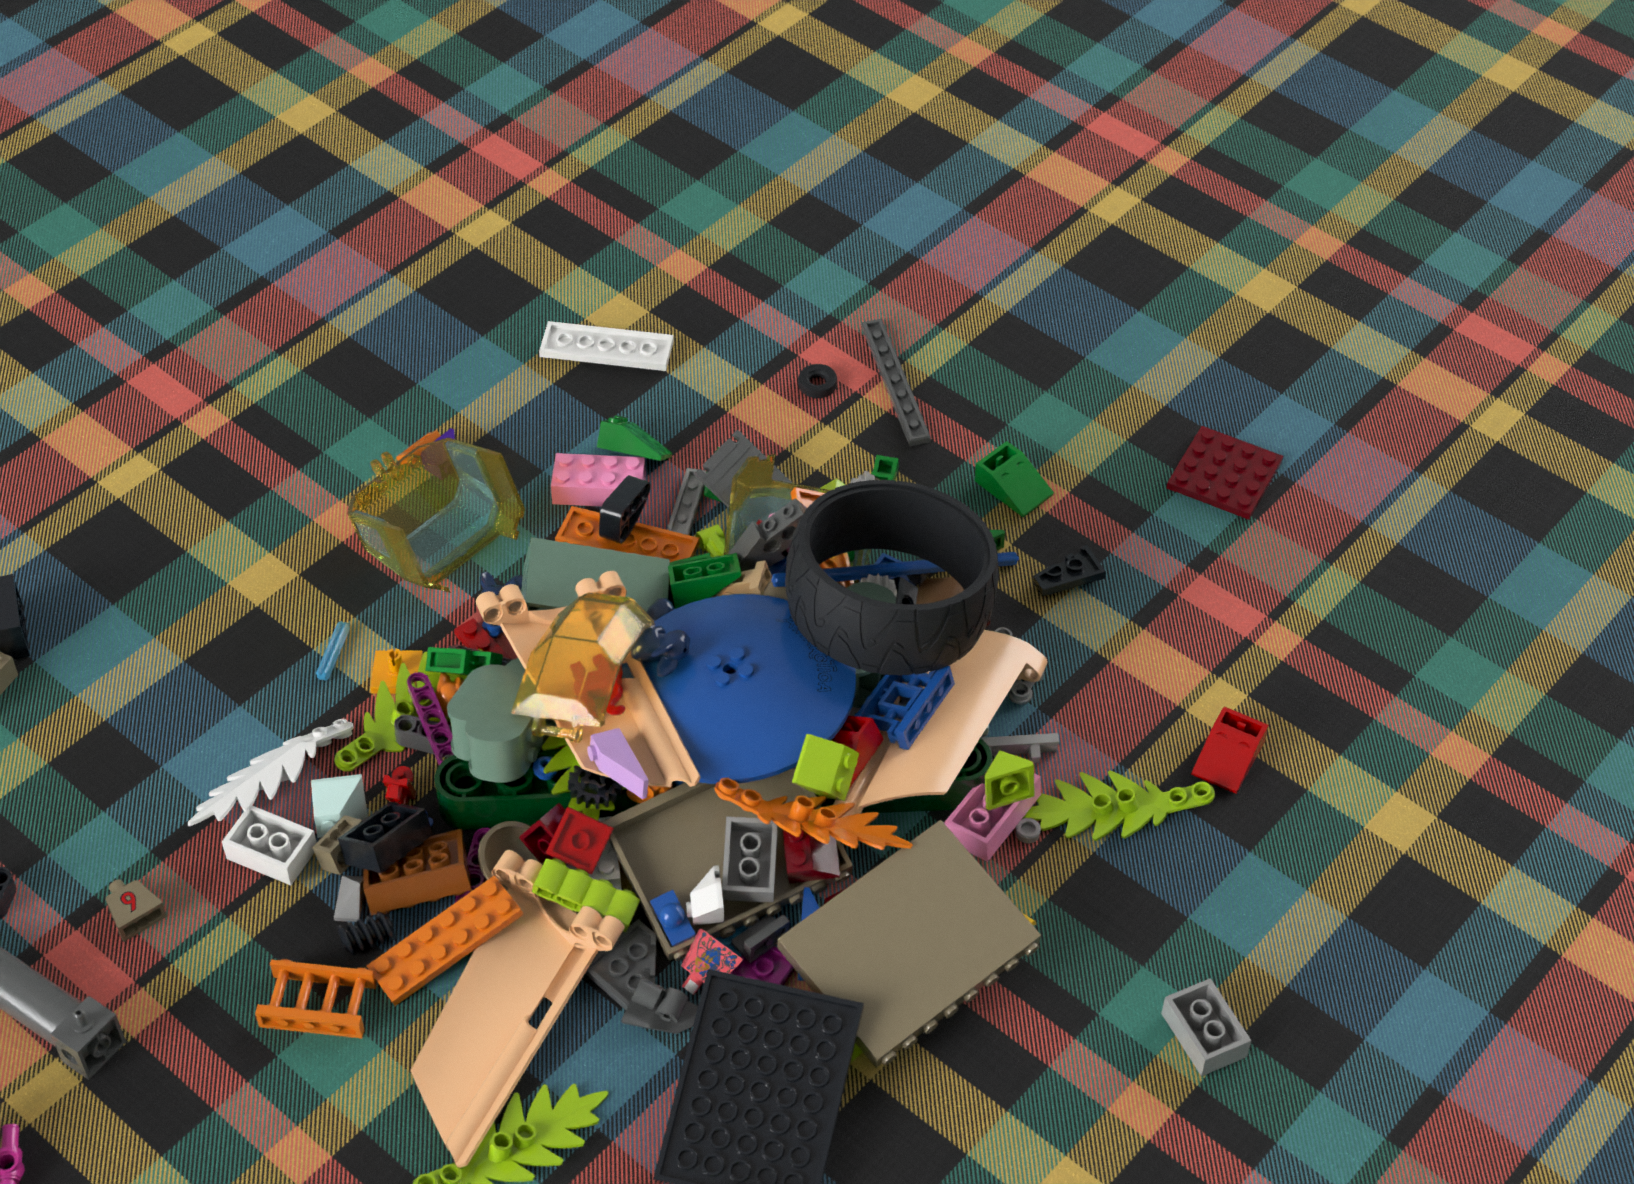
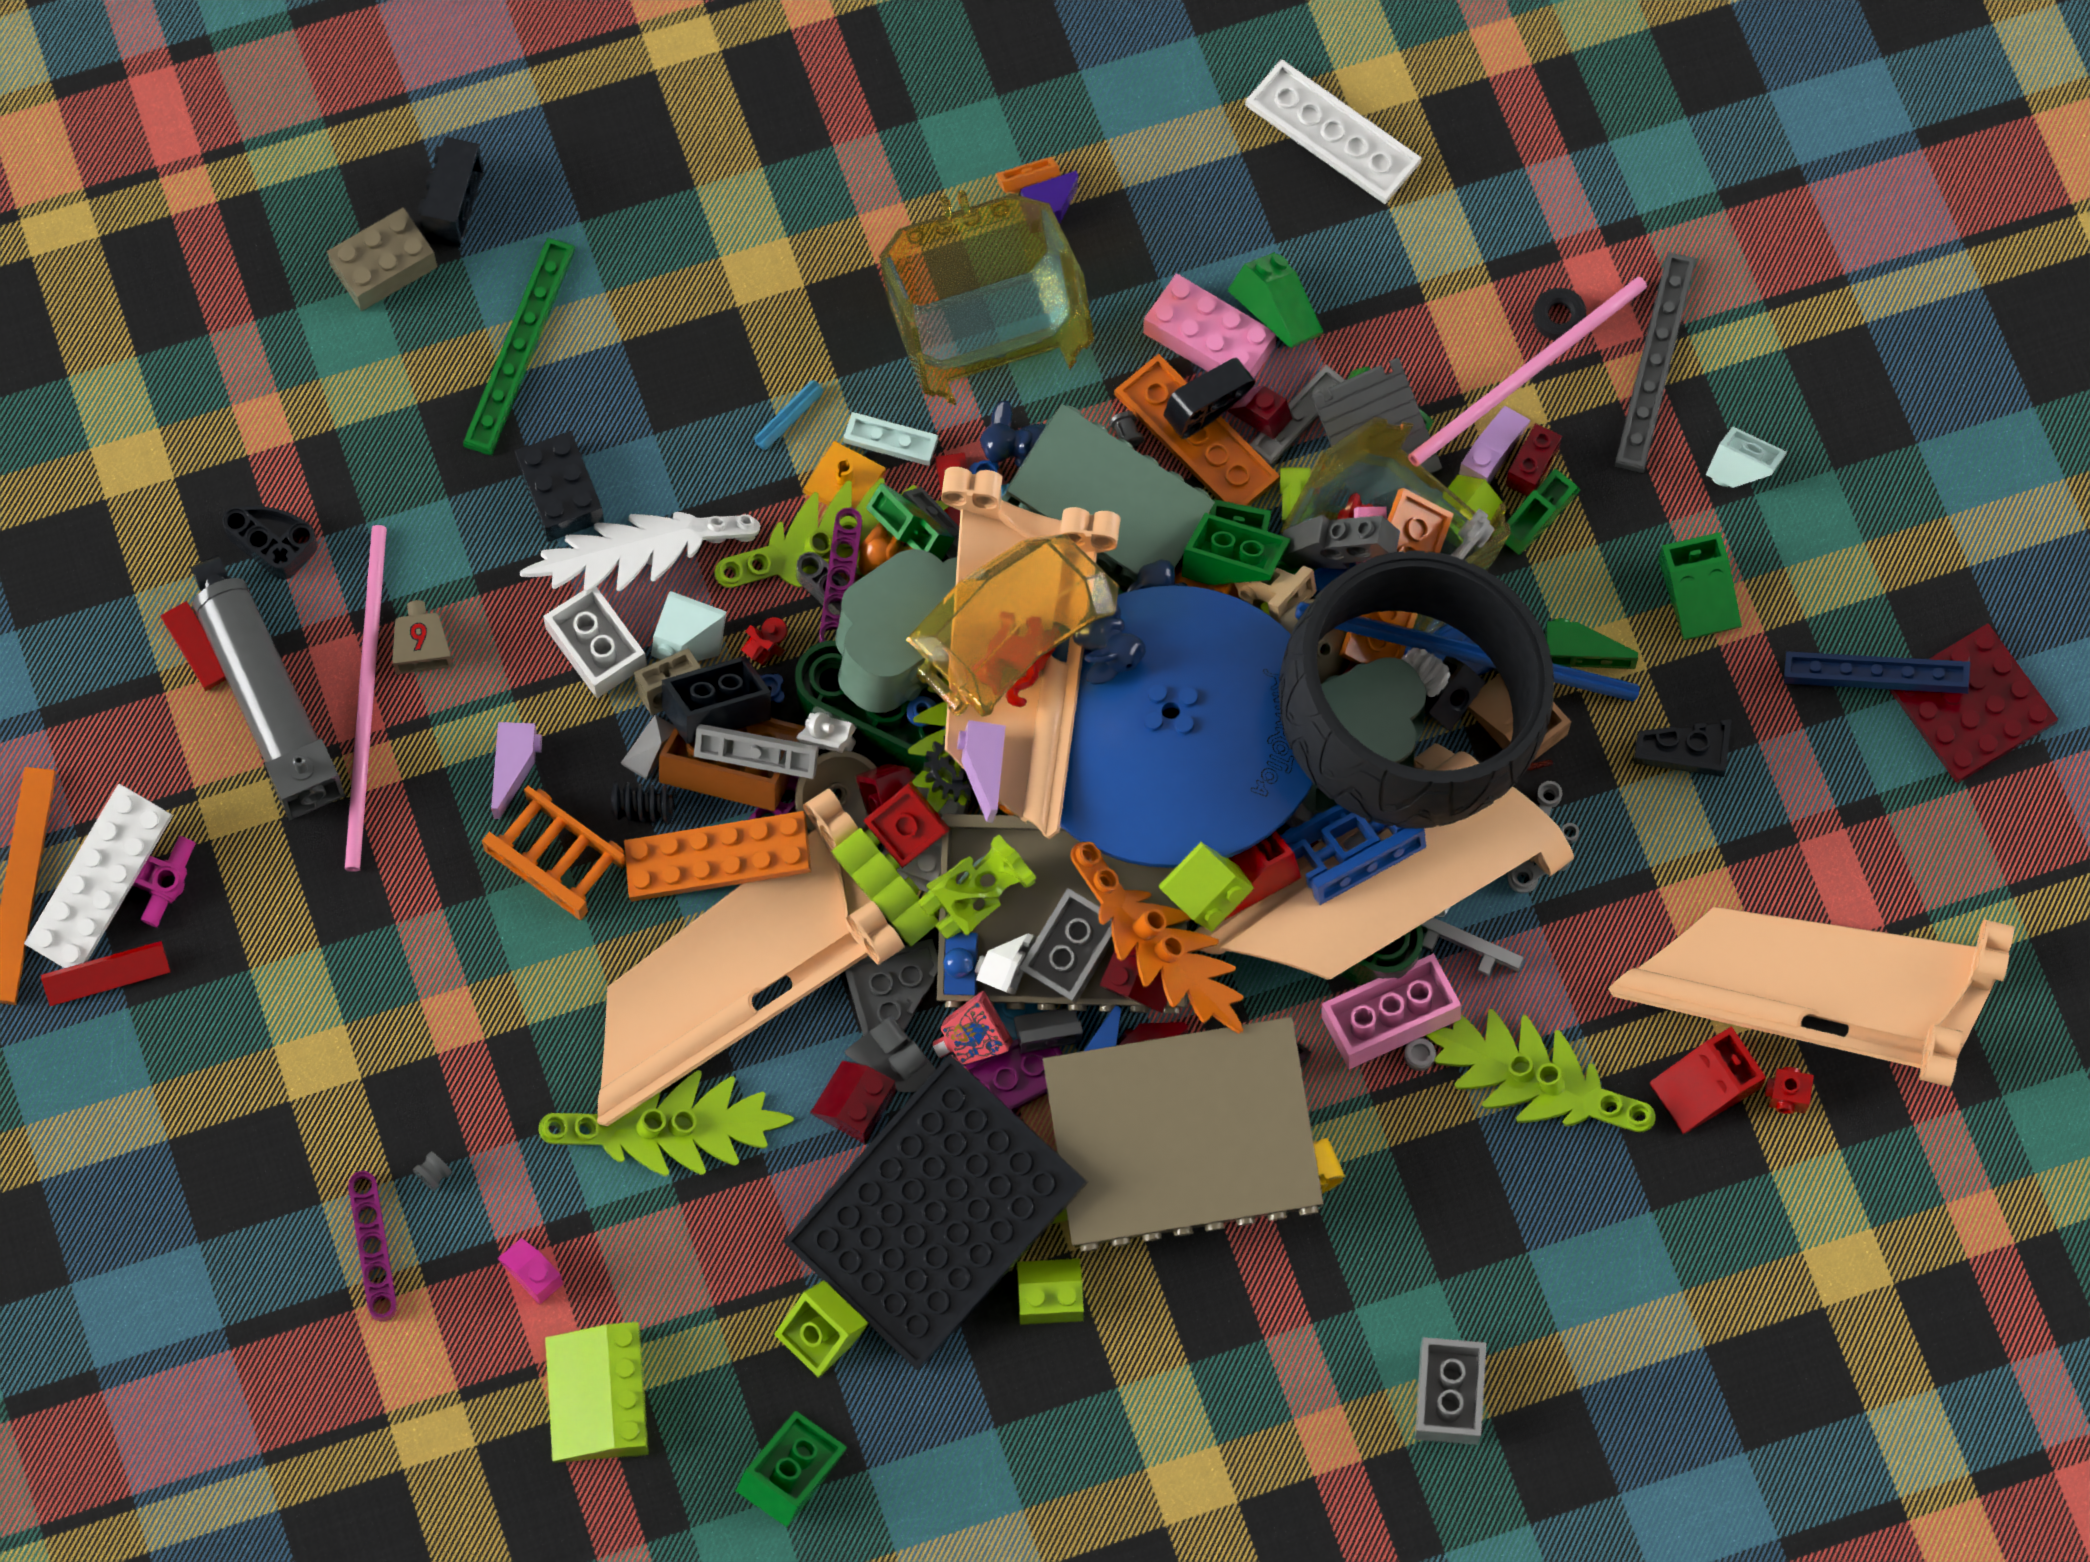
camera: 30 degrees right, 20 degrees up
(107, 696) = (519, 346): none -> green tile
(109, 970) = (365, 699): none -> bright pink piece
(186, 762) = (559, 486): none -> black brick
(249, 950) = (513, 761): none -> lavender slope
(415, 632) = (890, 439): none -> light aqua plate
(436, 849) = (756, 751): none -> light grey hinge
(480, 819) = (827, 733): none -> white hips
(646, 1053) = (855, 1099): none -> dark red slope
(663, 505) = (1263, 411): none -> dark red slope
(670, 827) = (958, 898): none -> lime hips
(821, 413) = (1527, 371): none -> bright pink piece
(826, 463) = (1494, 445): none -> lavender slope
(858, 455) = (1533, 460): none -> dark red brick
(877, 1111) = (1050, 1291): none -> lime slope
(988, 406) = (1743, 459): none -> light aqua slope
(1008, 780) = (1409, 998): lime slope -> none
(1157, 476) = (1877, 672): none -> dark blue plate
(1227, 669) = (1765, 972): none -> light nougat panel
(1286, 731) = (1789, 1090): none -> red brick

